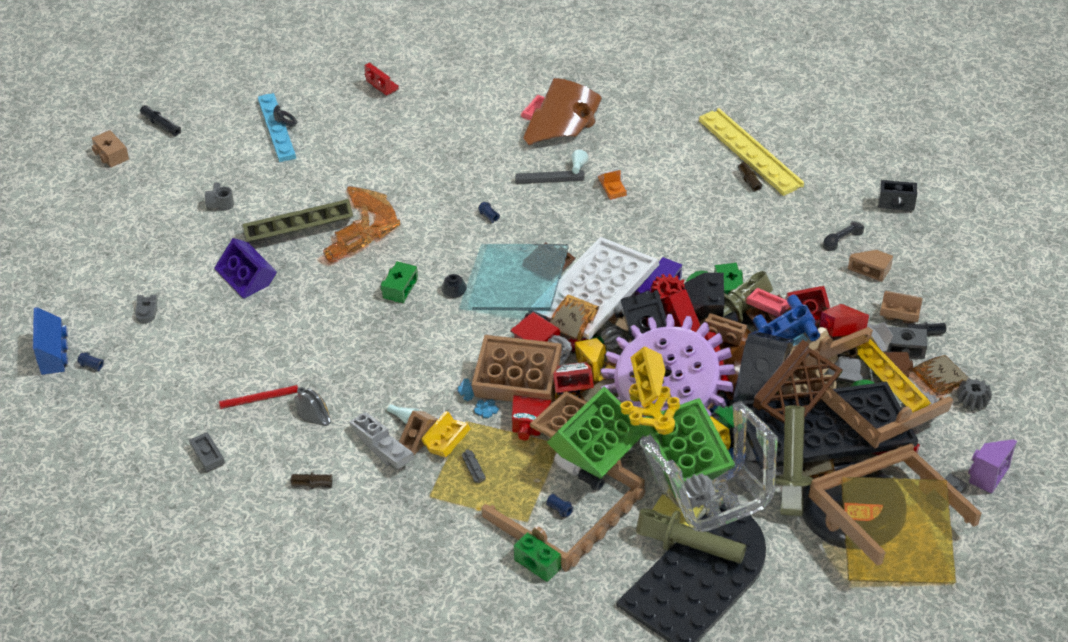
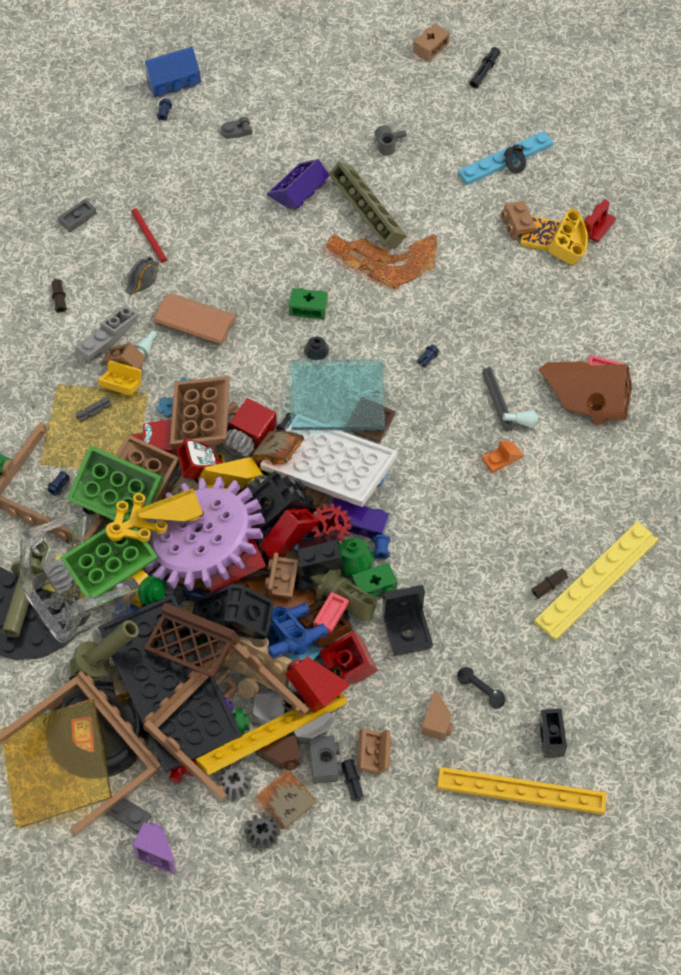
camera: 75 degrees right, 15 degrees up
(356, 129) = (517, 219): none -> medium nougat bracket
(374, 120) = (543, 234): none -> tile
(386, 369) = (195, 318): none -> nougat slope
(391, 98) = (570, 238): none -> yellow beam
(687, 271) = (381, 546): none -> blue bush
(774, 263) = (402, 611): none -> black bracket
(944, 228) = (522, 791): none -> yellow plate

